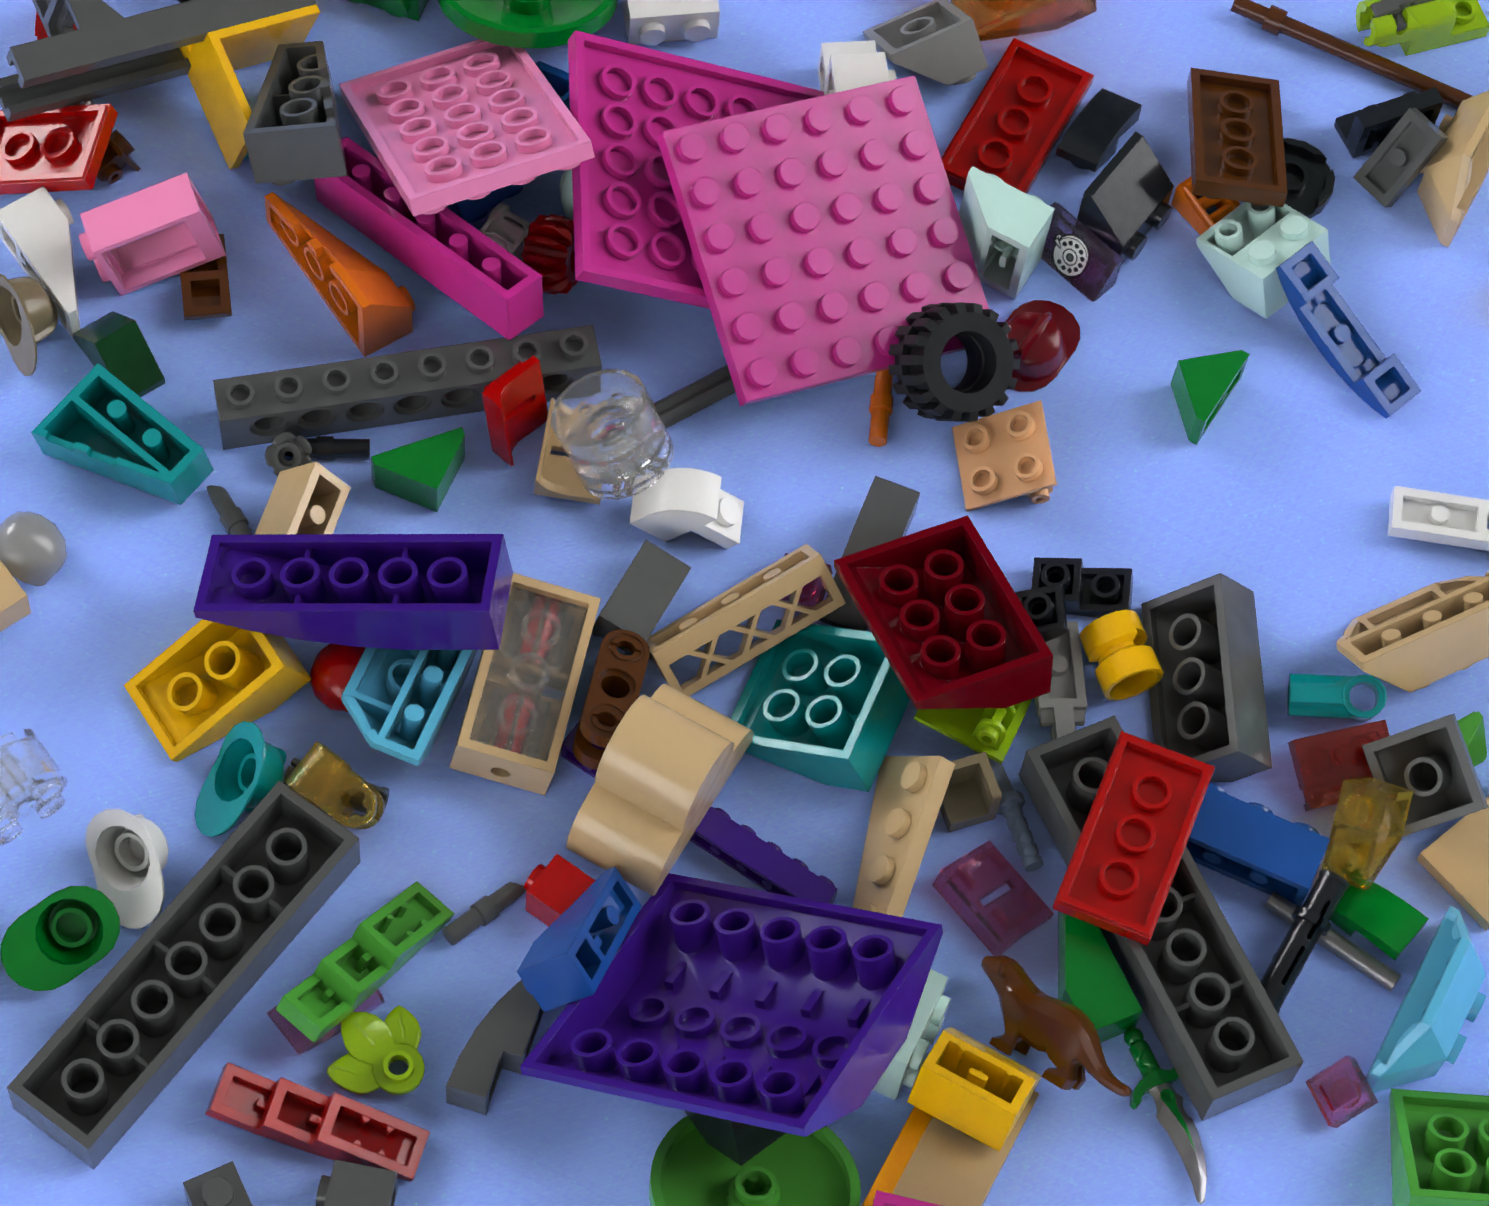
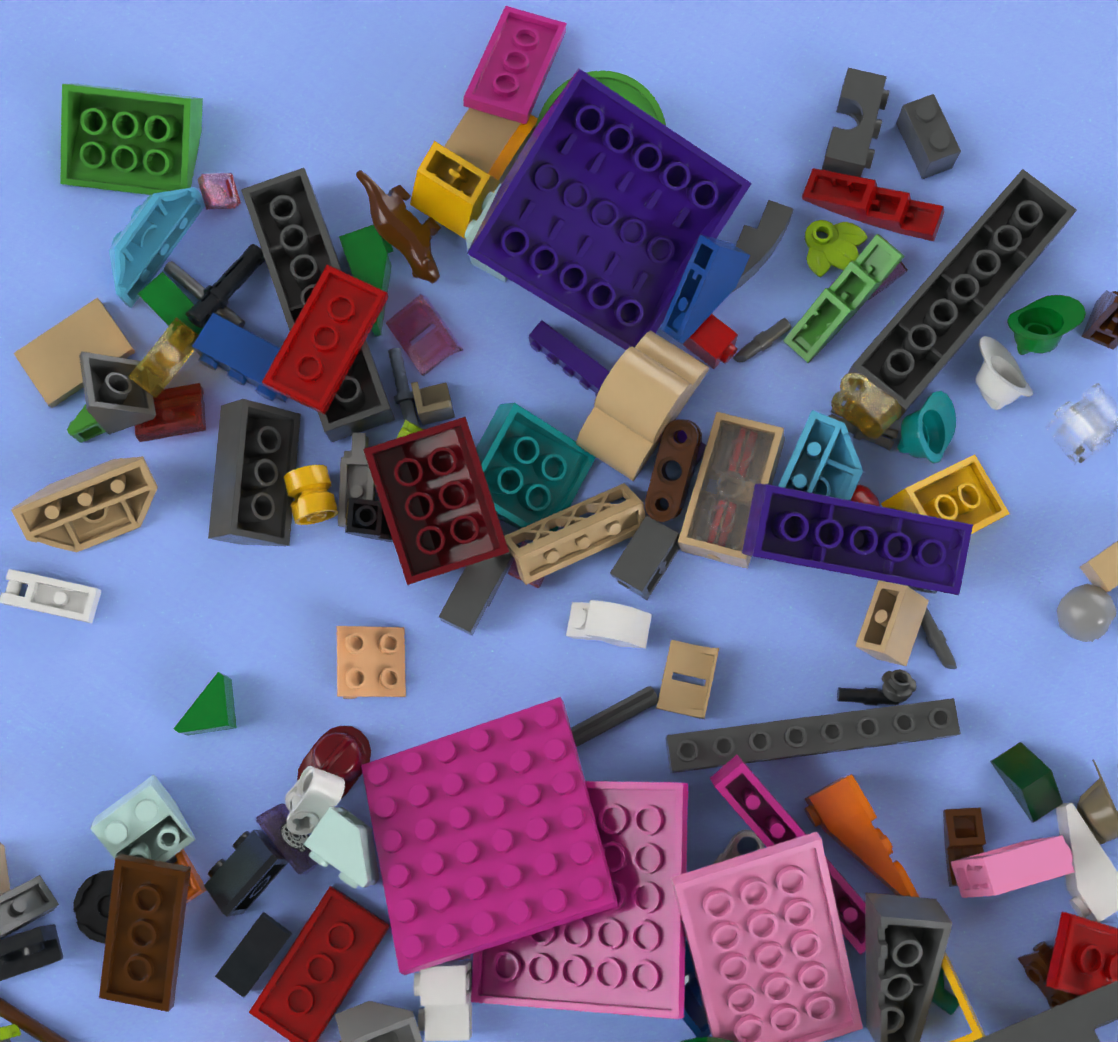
camera: 160 degrees left, 15 degrees up
(122, 438) = (1021, 697): teal wedge -> none
(421, 469) = (800, 666): green slope -> none
(514, 406) = (737, 706): red piece -> none
(551, 252) = (703, 841): red gear -> none
(612, 434) = (675, 677): clear wheel -> none
(880, 408) = (456, 713): orange piece -> none
(899, 830) = (484, 365): tan wing -> none
(988, 362) = (399, 726): black tyre -> none
(1052, 284) = (311, 799): none -> white piece
(1087, 590) = (330, 556): black slope -> none
(1169, 1109) = (330, 189): piece -> none
(1330, 696) = (167, 458): teal piece -> none
(1340, 335) = (97, 750): slope -> none

